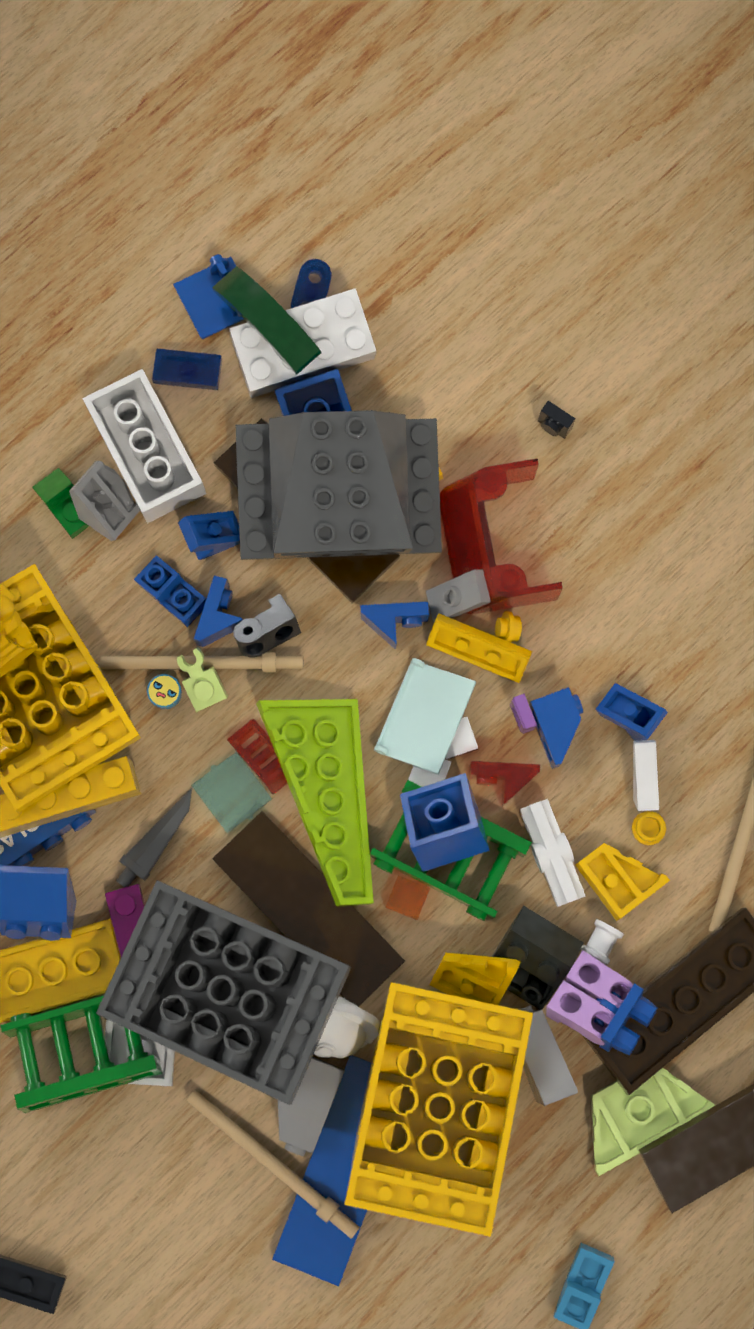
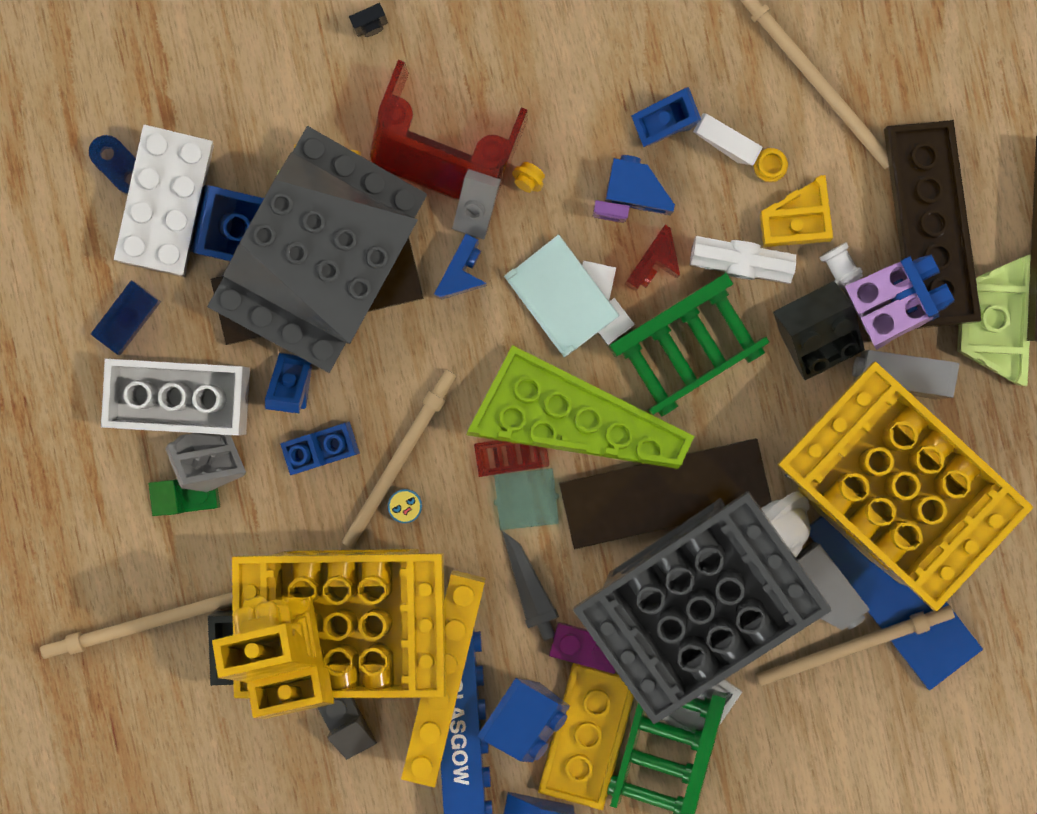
camera: 55 degrees left, 10 degrees up
(202, 304) = (72, 252): blue hinge -> none
(203, 685) = (420, 470): yellowish green plate -> none
(213, 622) = (371, 429): blue slope -> none
(267, 629) = (405, 386): leg -> none
(268, 319) = (125, 220): dark green slope -> none
(407, 898) = (705, 404): clear orange plate -> none
(443, 822) = (666, 337): blue slope -> none
(475, 976) = (809, 389): yellow wing -> none
(478, 648) = (531, 213): yellow tile -> none

